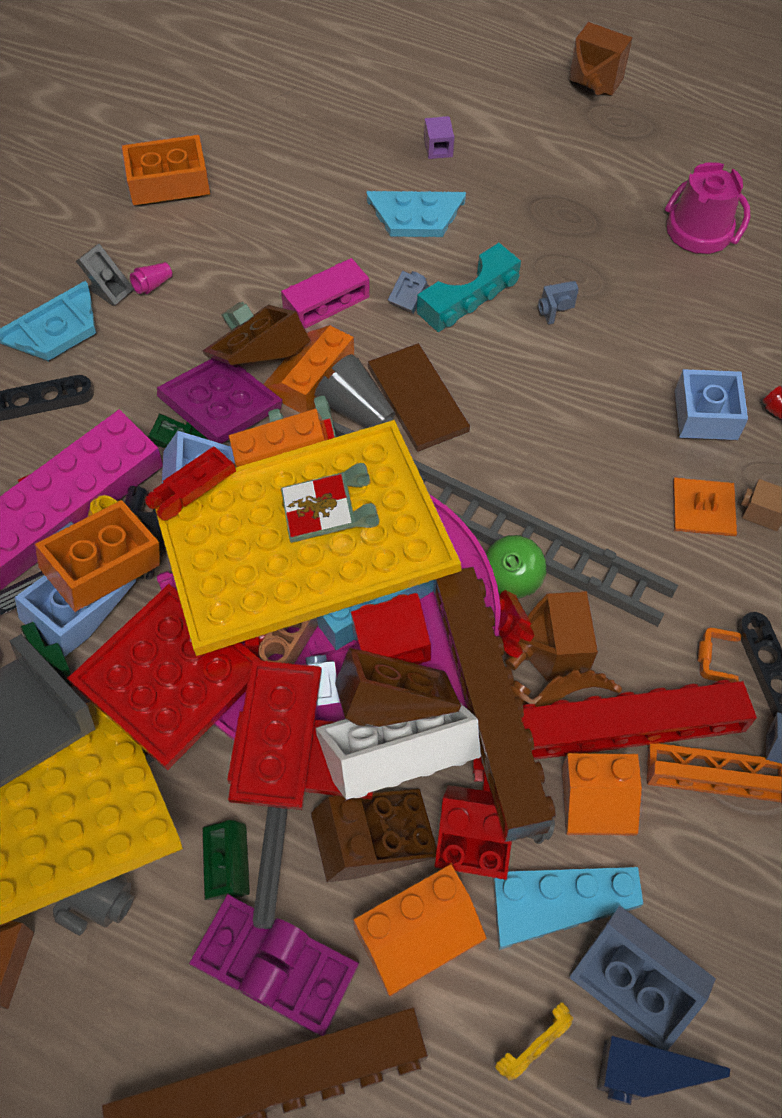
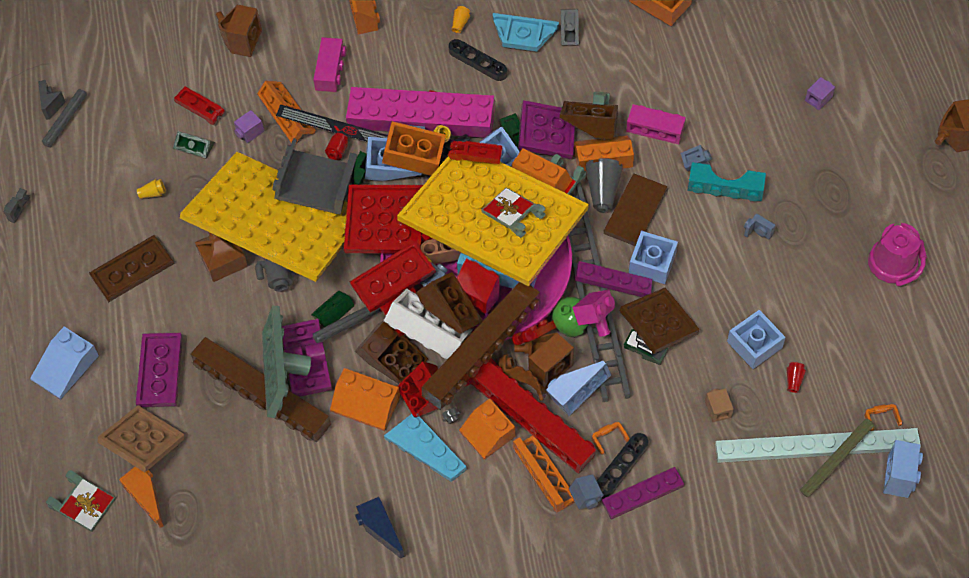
camera: 55 degrees right, 0 degrees up
(150, 277) = (590, 45): dark pink cone -> none
(267, 1021) = (278, 363): none -> sand green plate
(416, 212) = (757, 123): medium azure wing -> none
(500, 485) = (613, 279): none -> magenta plate
(509, 422) = (653, 257): none -> light blue brick
(513, 1068) = (365, 478): yellow piece -> none
(545, 527) = (594, 309): none -> dark pink brick
(603, 479) = (659, 320): none -> reddish brown plate
(621, 520) = (636, 344): none -> slope
(637, 643) = (576, 386): none -> light blue slope
(643, 979) = (417, 497): sand blue slope -> none
(704, 507) = (694, 379): orange piece -> none

